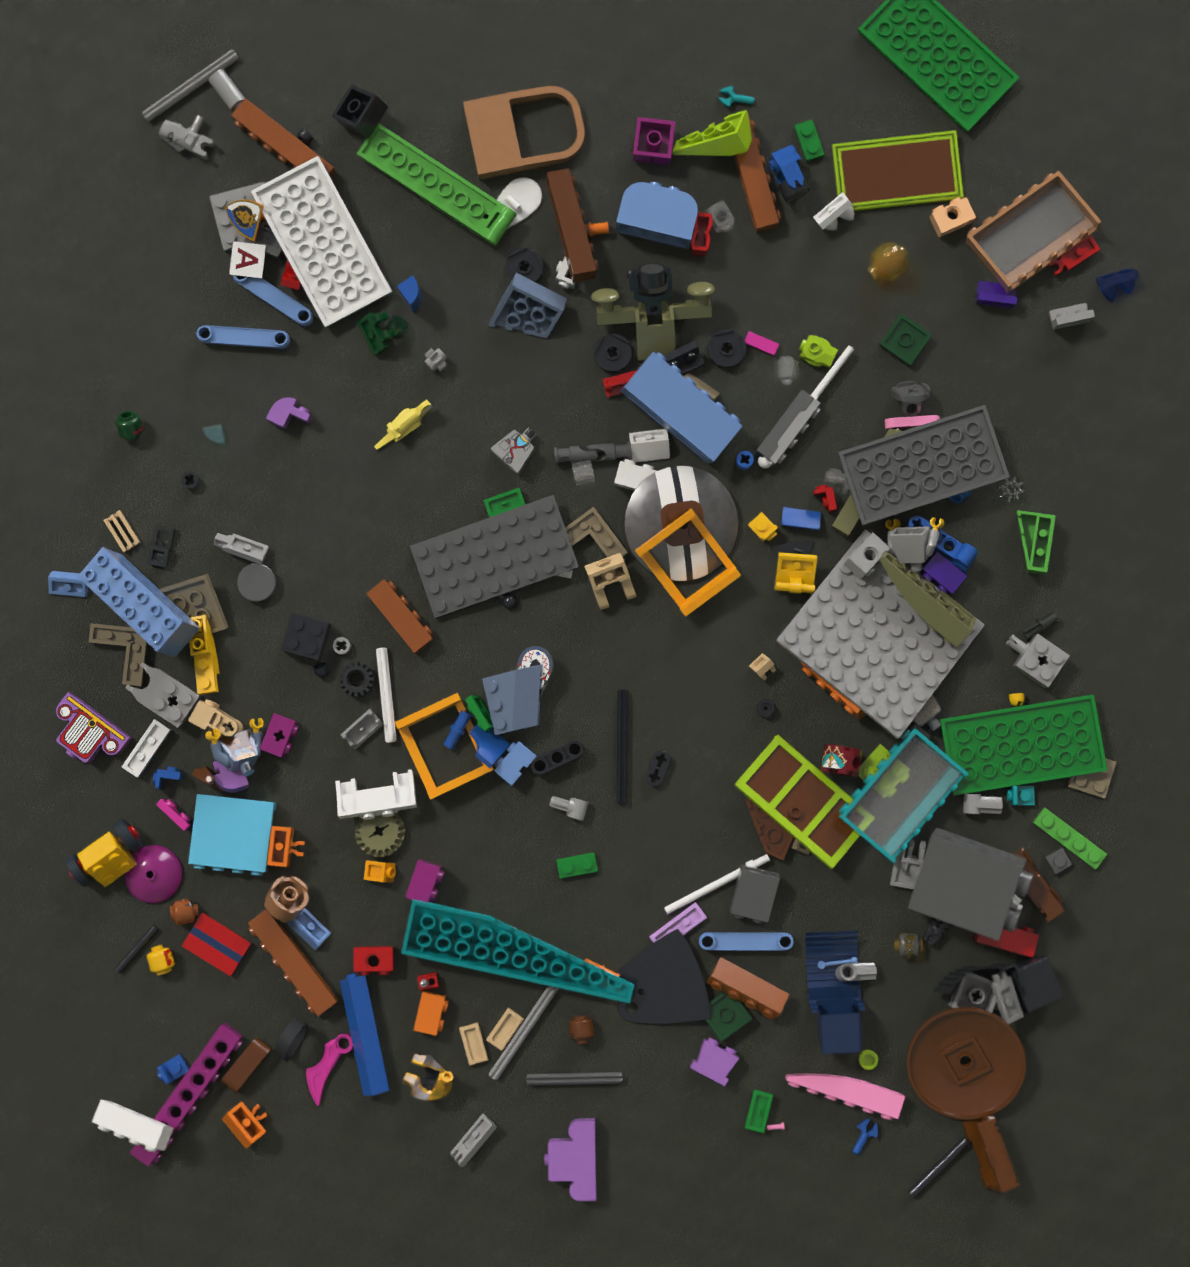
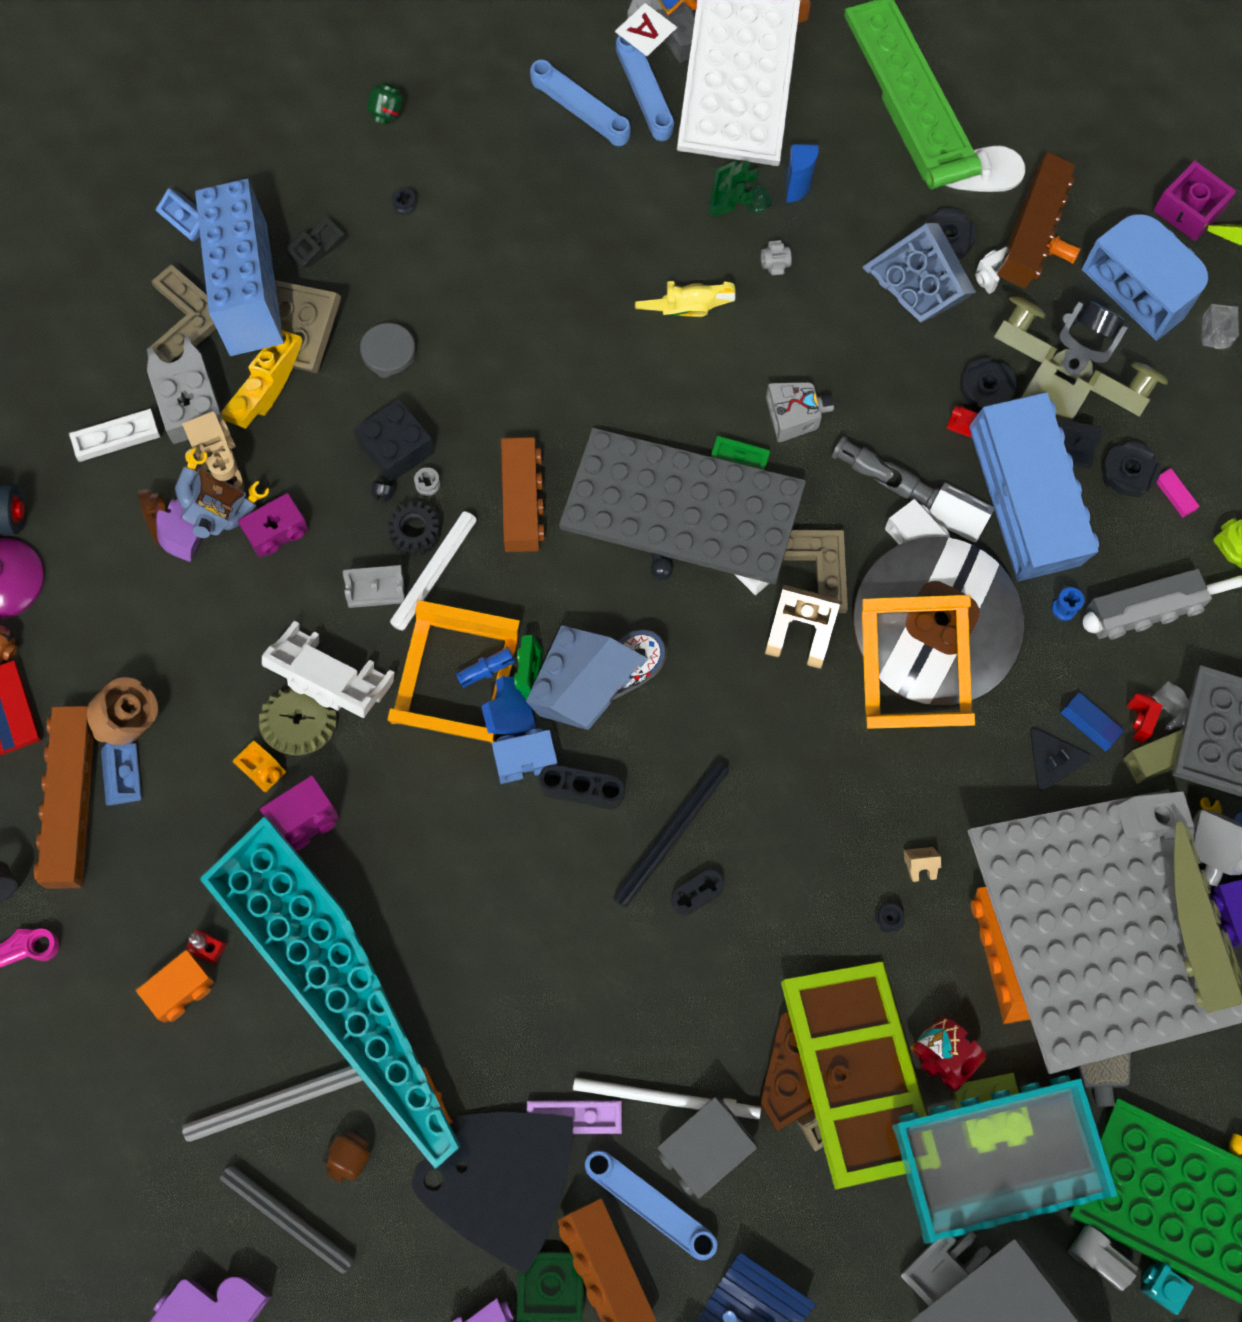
camera: 30 degrees right, 15 degrees down
(88, 730) = (68, 371): brick -> none
(113, 518) = (288, 183): tan tile -> none
(171, 773) = (104, 474): blue bracket -> none
(180, 819) = (82, 536): dark pink plate -> none
(215, 433) = (470, 175): clear light blue tile -> none
(231, 834) = (124, 594): medium azure panel -> none
(242, 547) = (402, 302): light grey hinge -> none
(281, 846) = (169, 649): orange brick -> none
(284, 409) = (564, 199): medium lavender brick -> none
(289, 277) = (677, 76): red bracket -> none
(364, 1035) = (72, 952): blue brick -> none
(385, 955) = (153, 852): red brick -> none
(435, 1085) = (97, 1086): pearl gold piece -> none
(473, 1043) = (197, 1070): tan tile -> none
(473, 1140) = (92, 1199): light grey hinge -> none
(495, 135) = (1013, 87): medium nougat window -> none
(505, 1029) = (251, 1082): tan tile -> none
(574, 808) = (555, 863): light grey axle -> none
(576, 865) = (504, 939): green plate -> none
(583, 472) = (858, 485): clear brick -> none
(701, 235) = (1185, 327): red brick -> none
(763, 527) = (1037, 698): yellow bracket -> none
(786, 370) = (1191, 538): clear head -> none
(795, 573) = (1045, 776): yellow plate -> none

